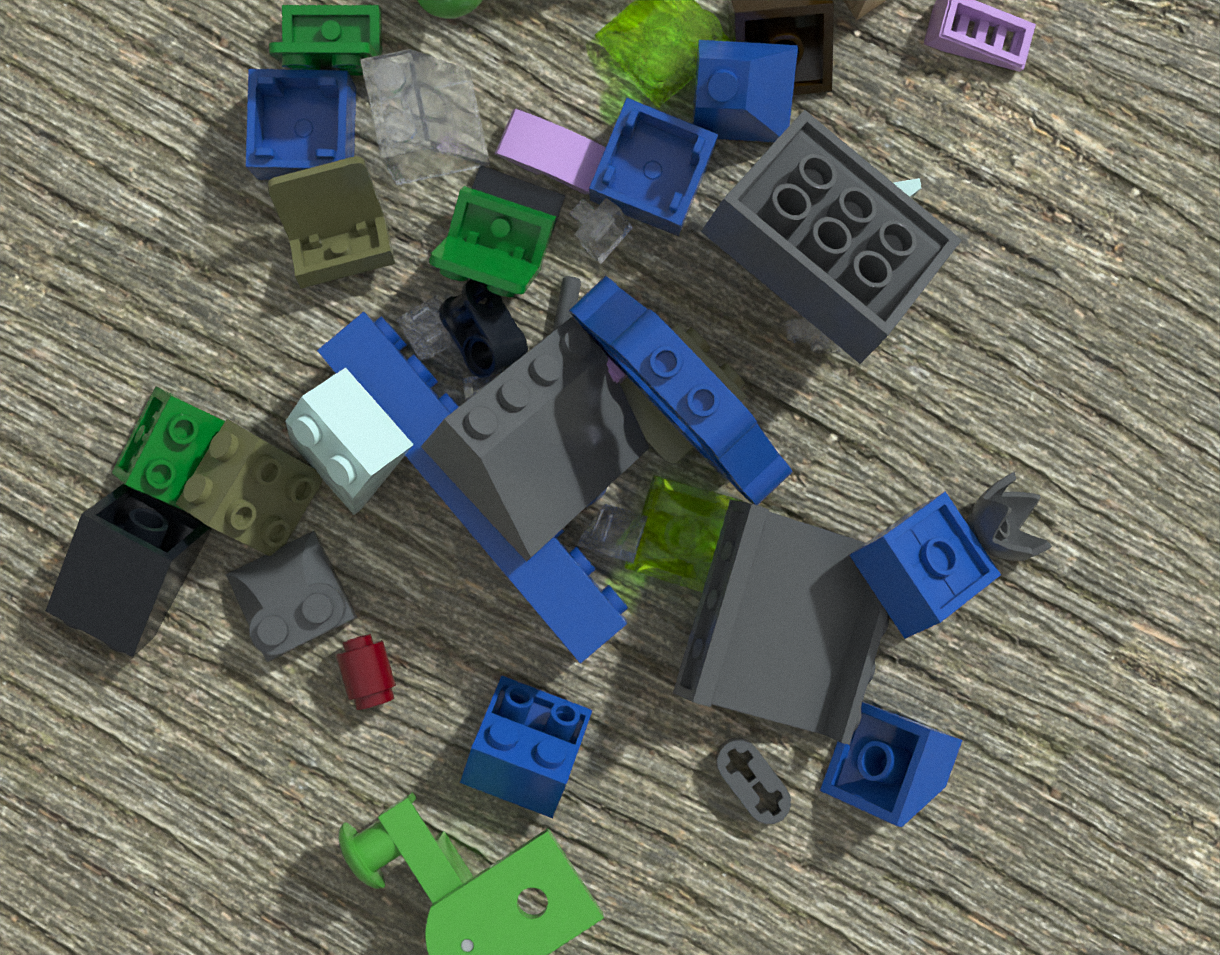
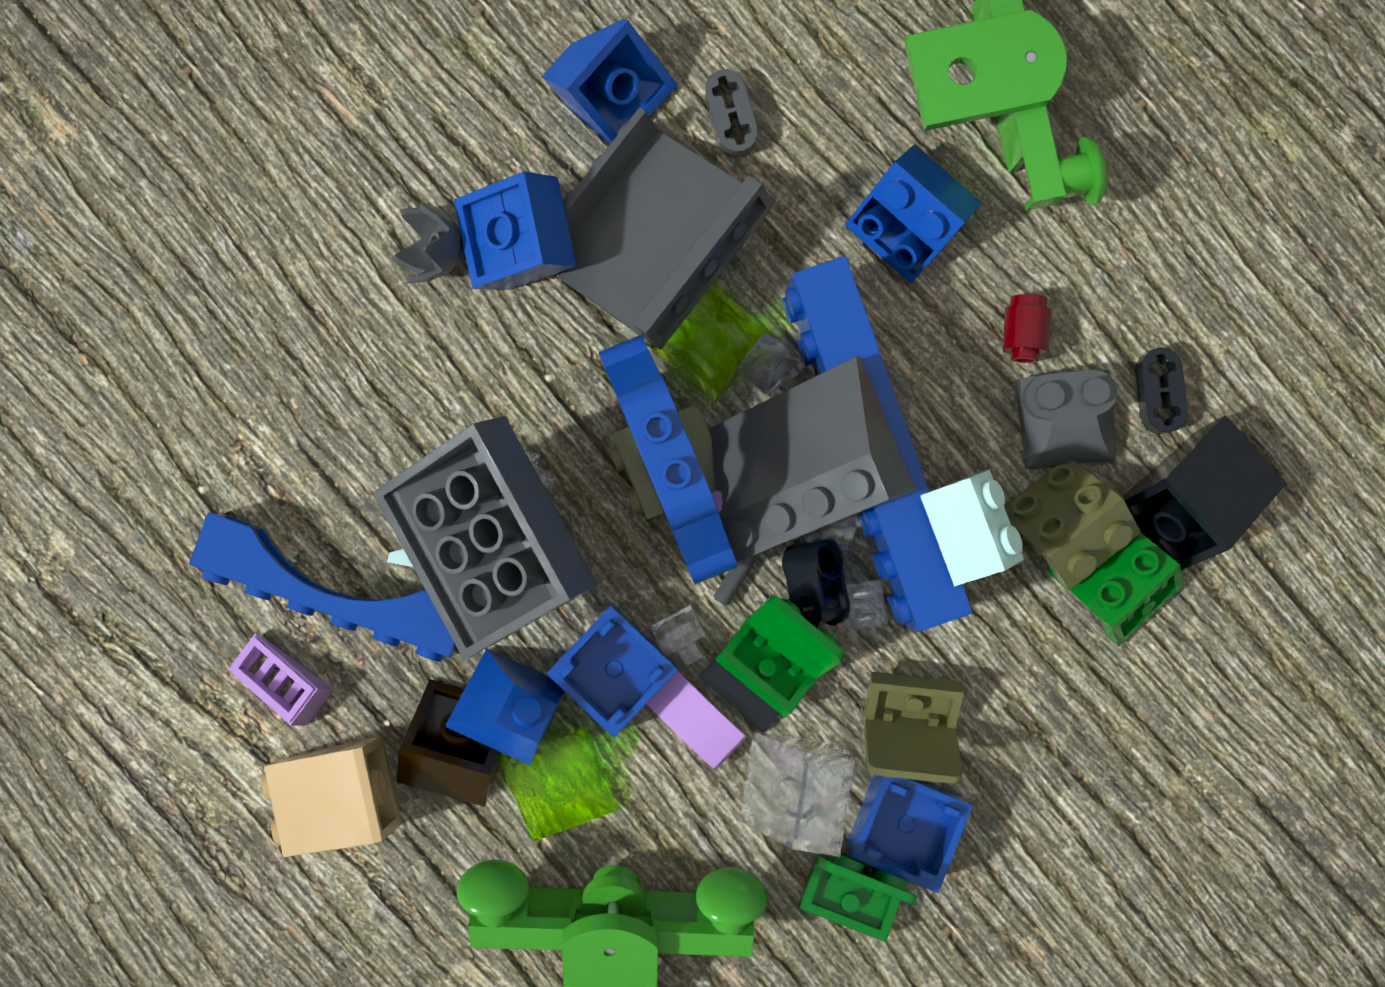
camera: 160 degrees left, 0 degrees up
(195, 668) = (1171, 389): none -> black beam
(1062, 141) = (247, 555): none -> blue arch

